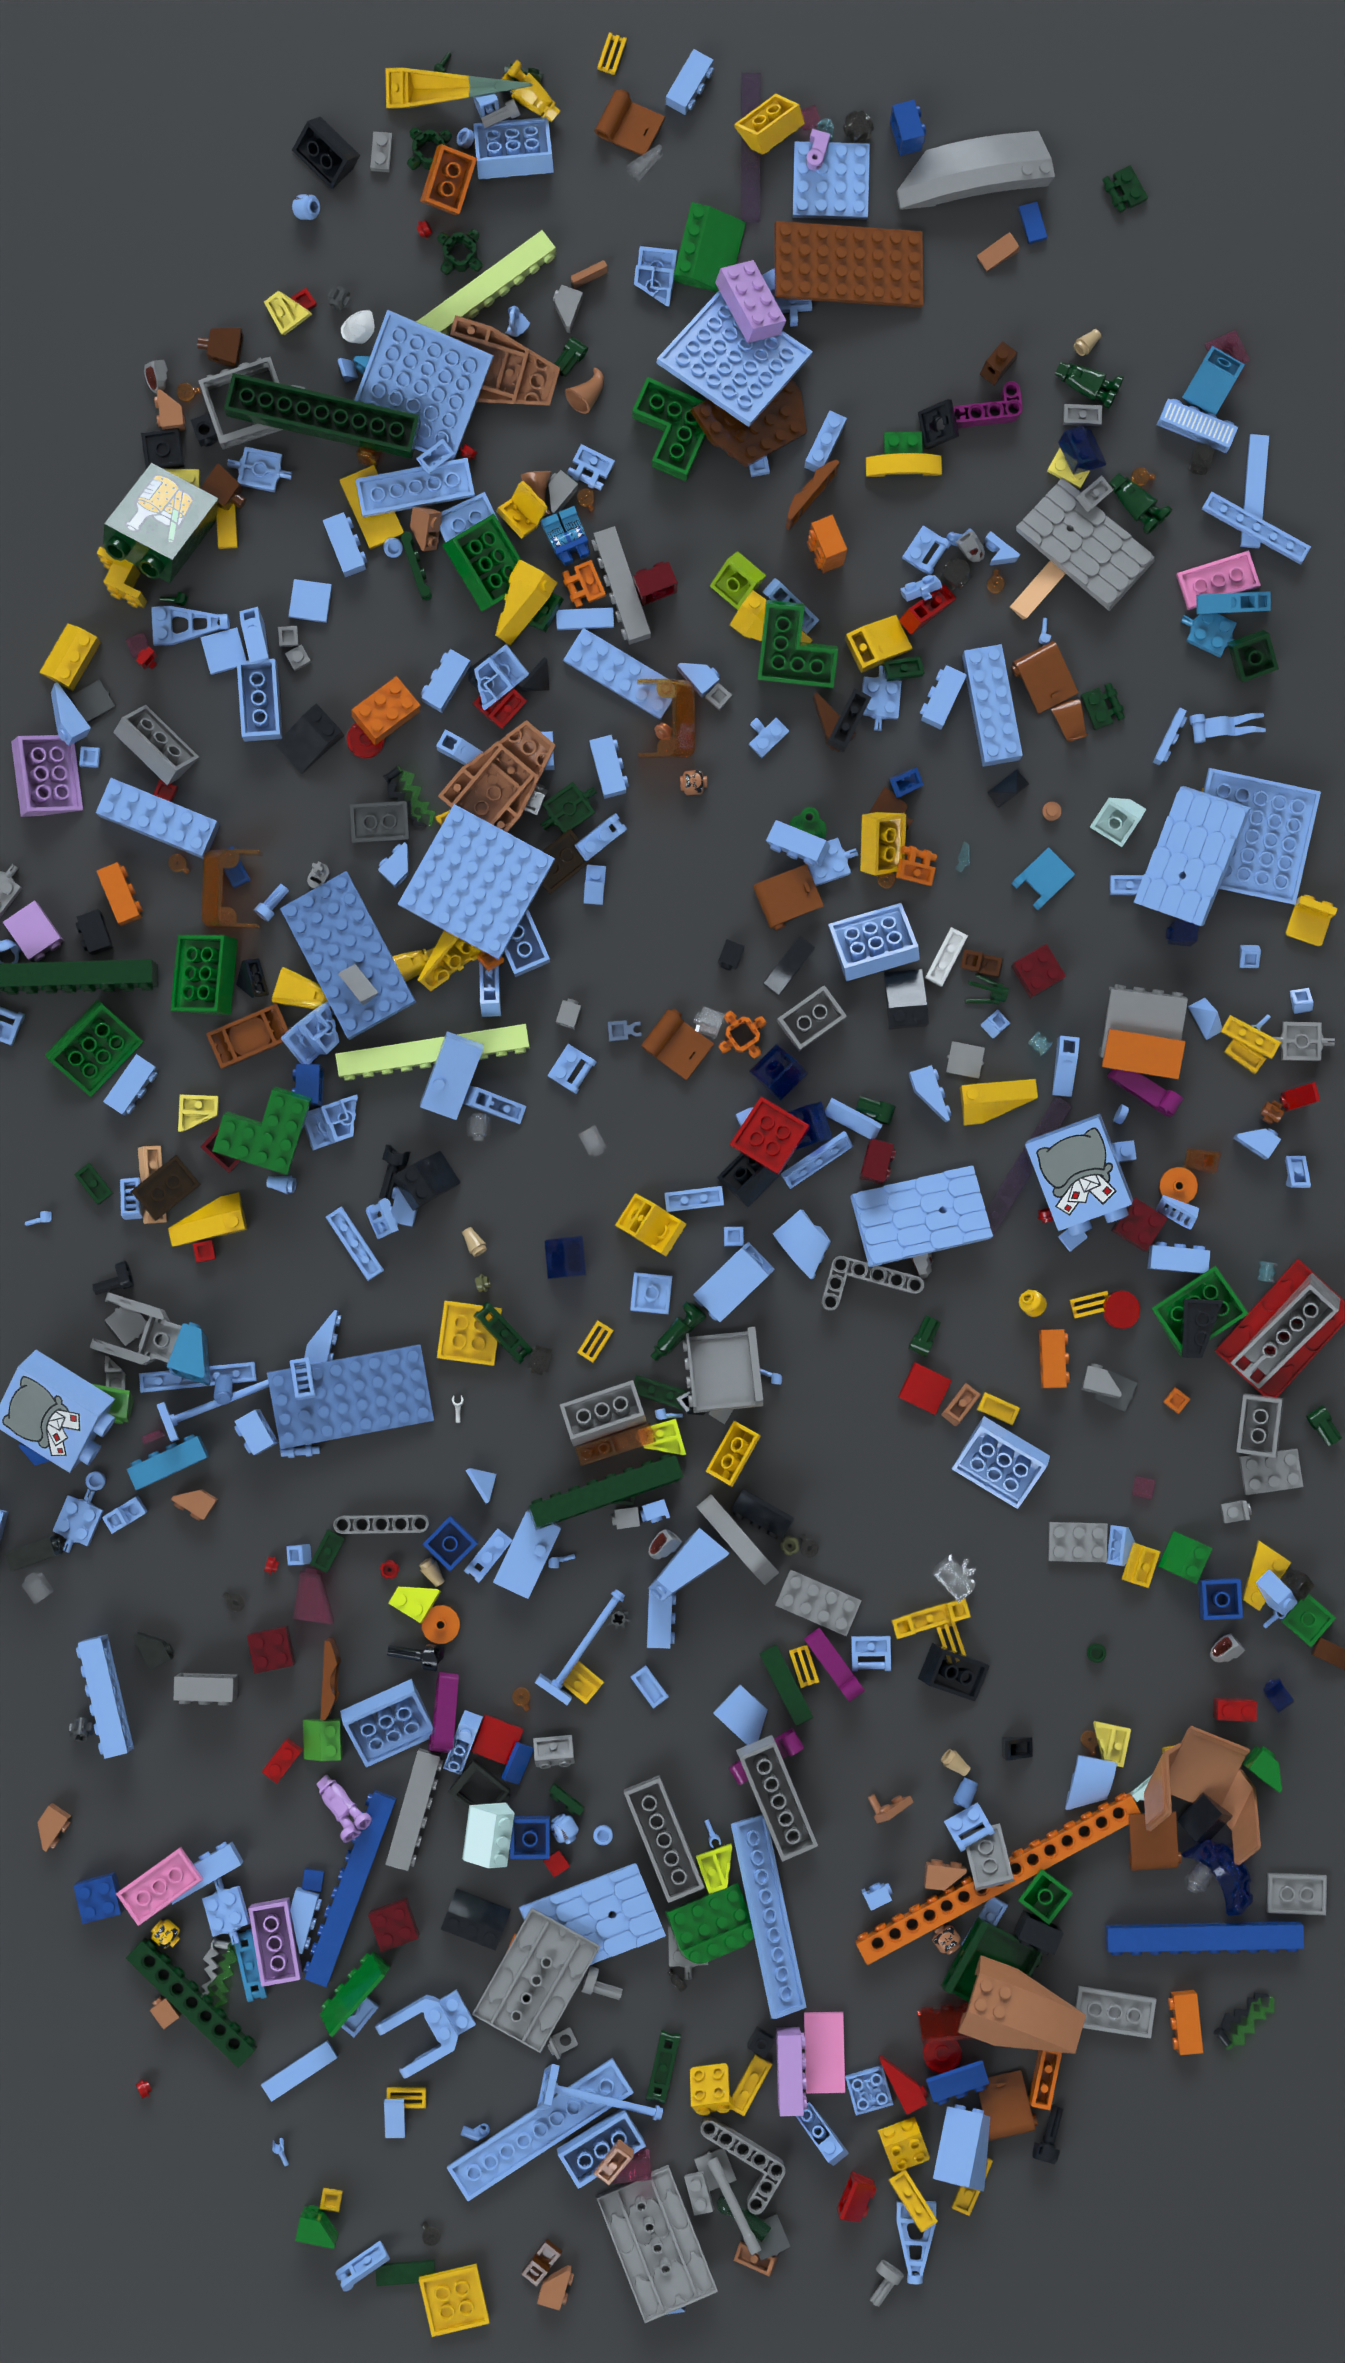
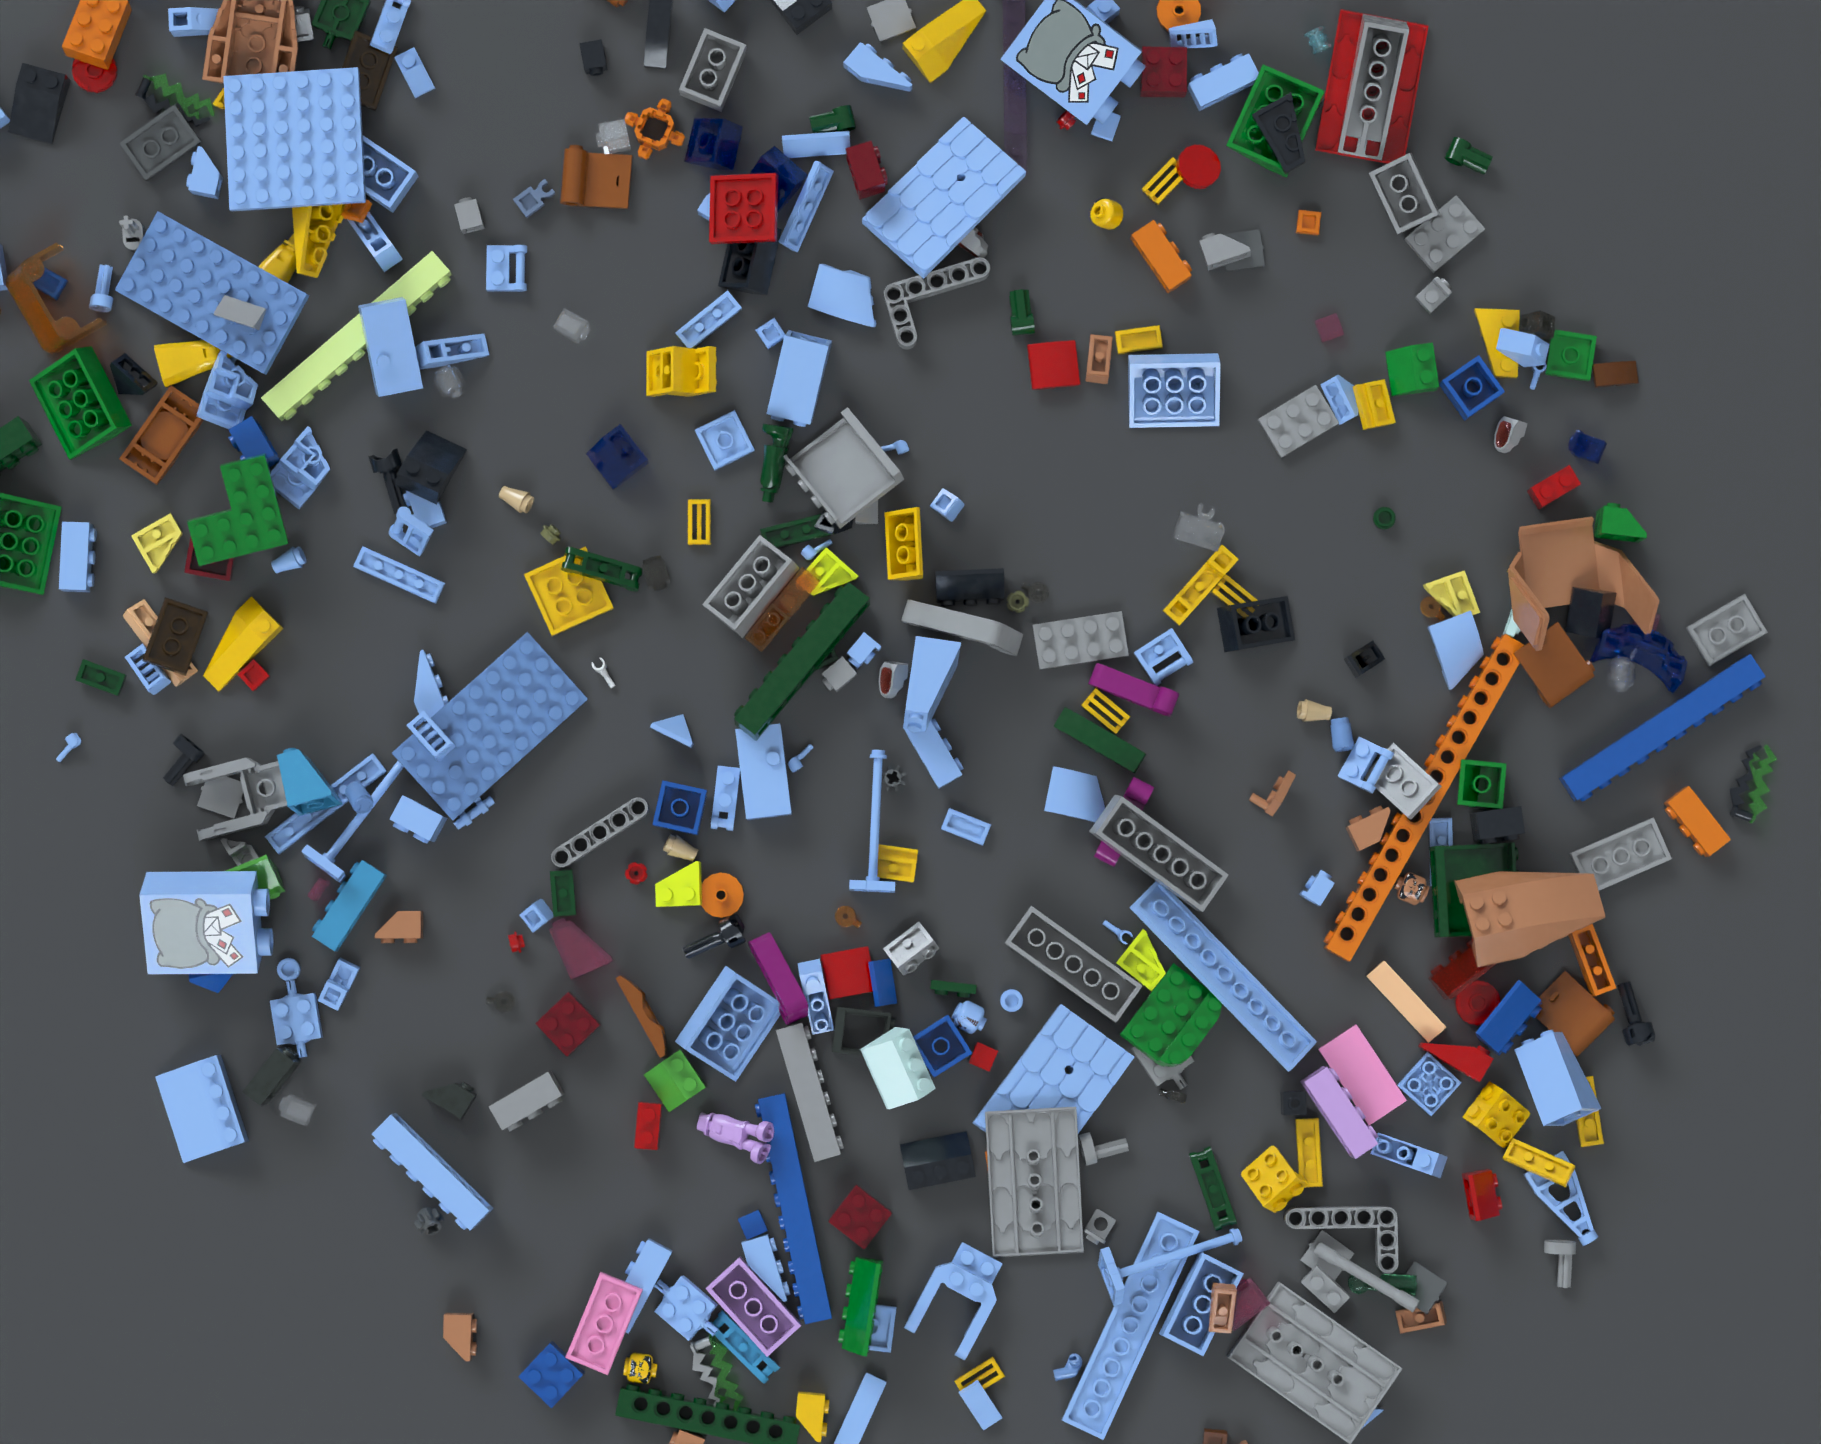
camera: 30 degrees left, 0 degrees up
(268, 2045) = (810, 1413): none -> yellow slope
(783, 1442) = (947, 505): none -> light blue slope
(890, 2019) = (1406, 1001): none -> light nougat slope

